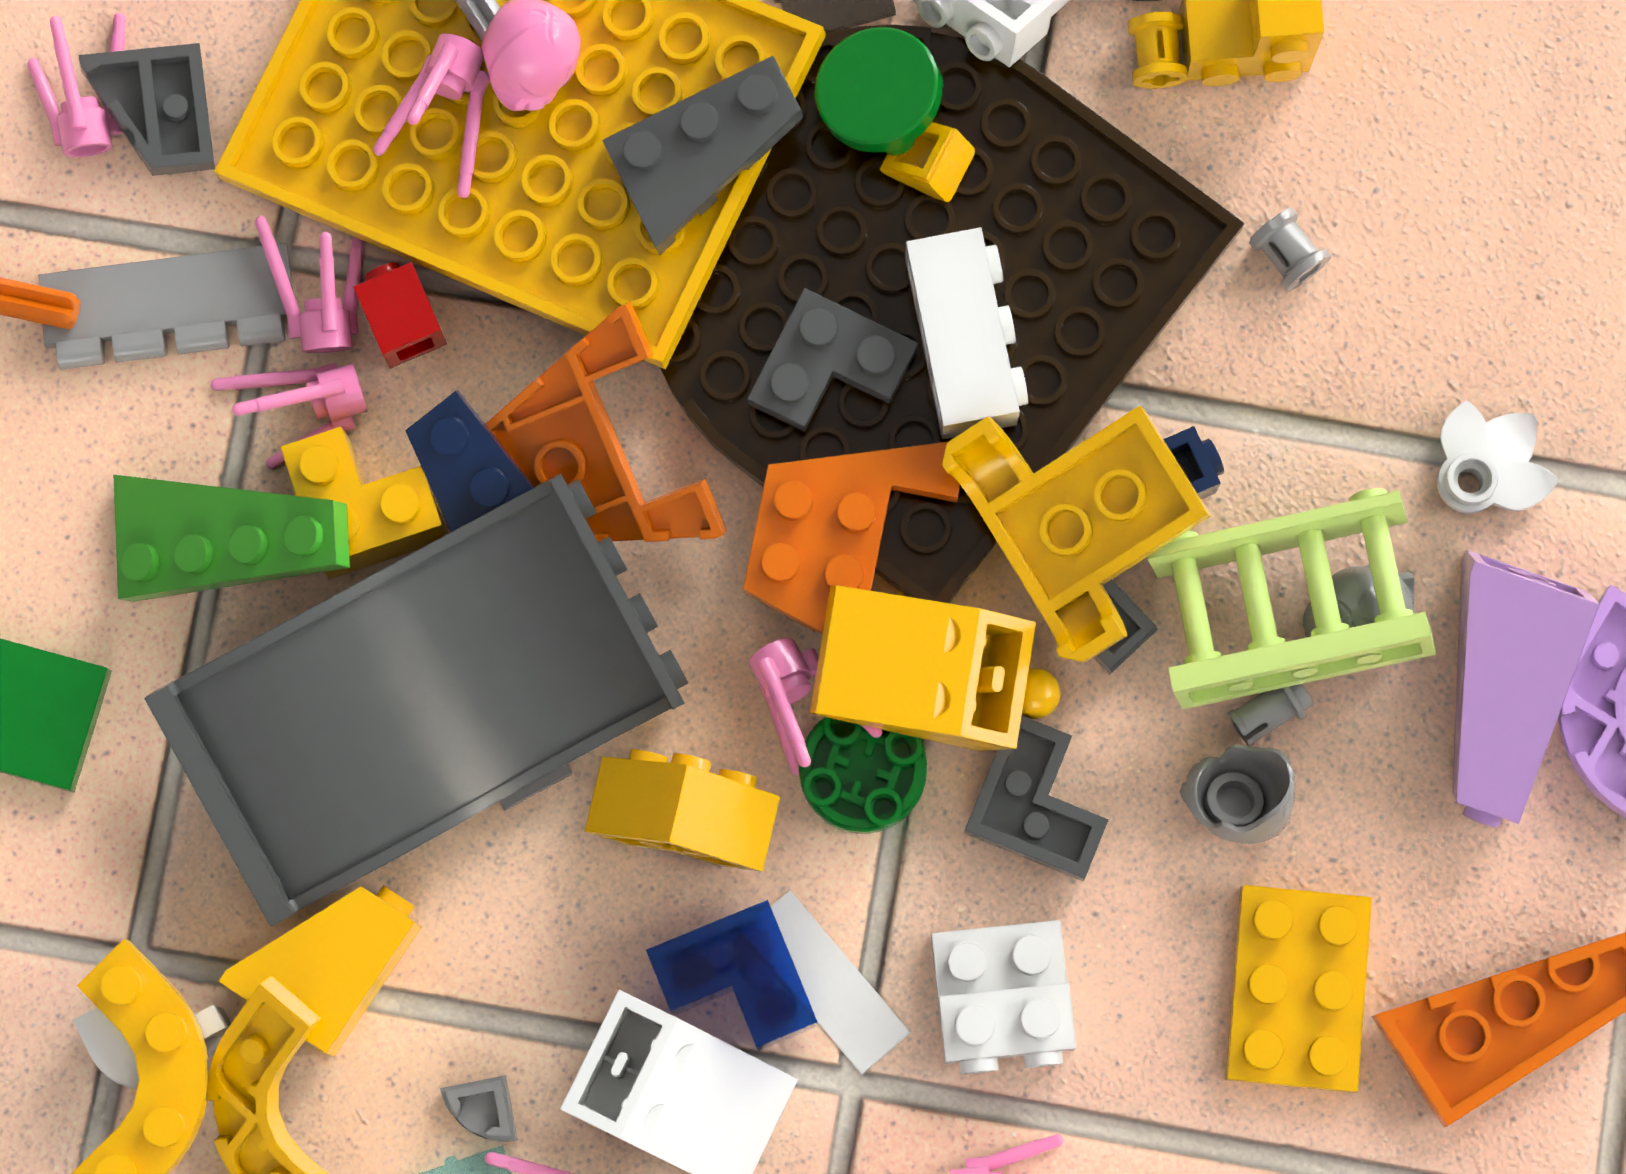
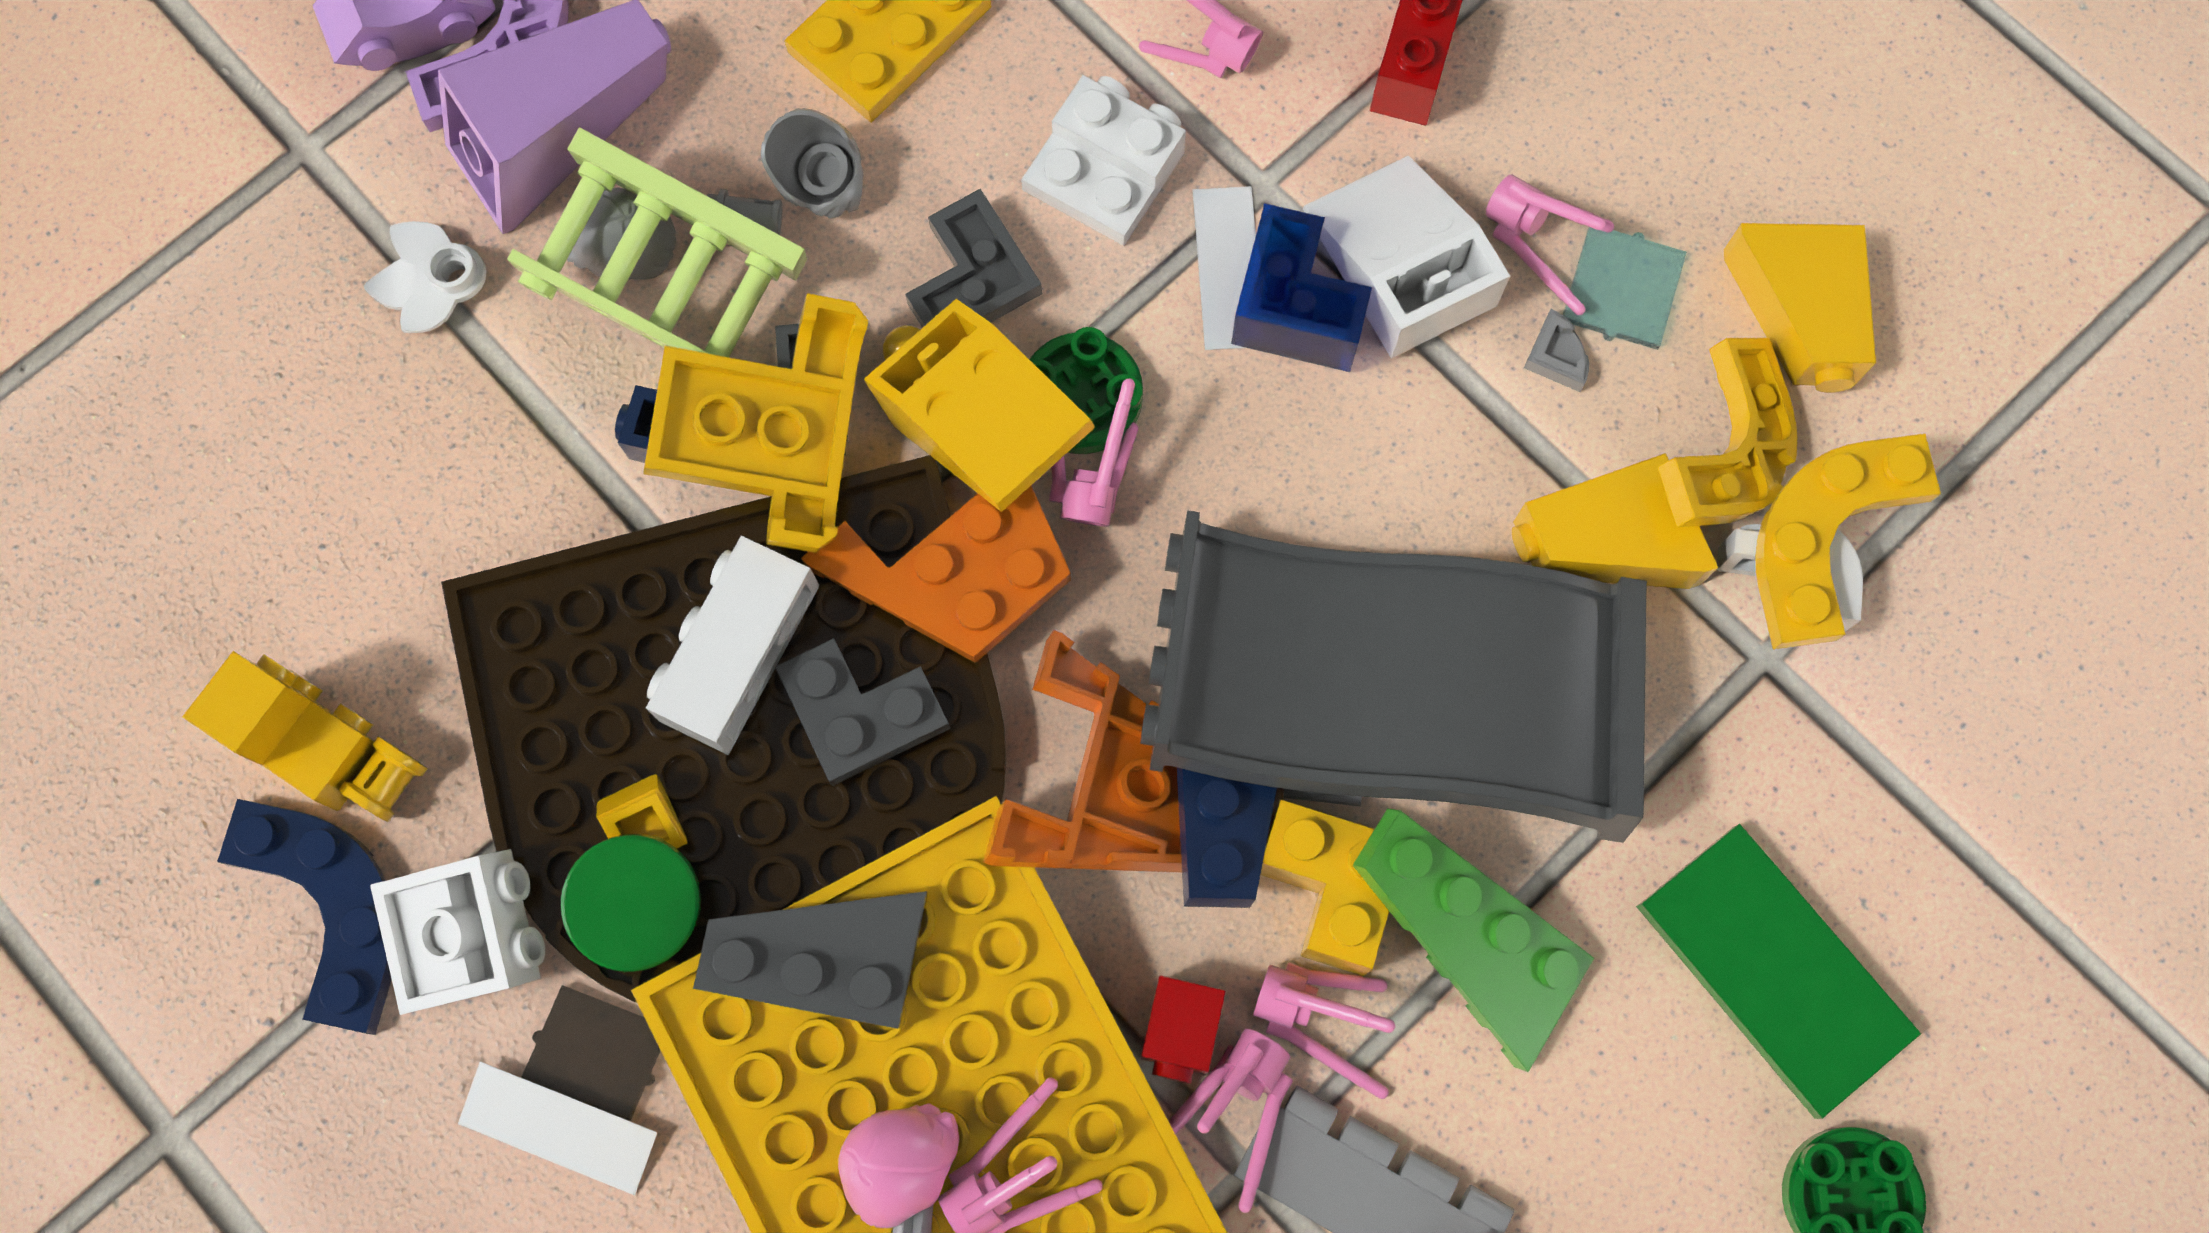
camera: 145 degrees left, 5 degrees down
(683, 809) = (1253, 439): yellow brick -> none
(1289, 249) = (426, 538): light grey bush -> none

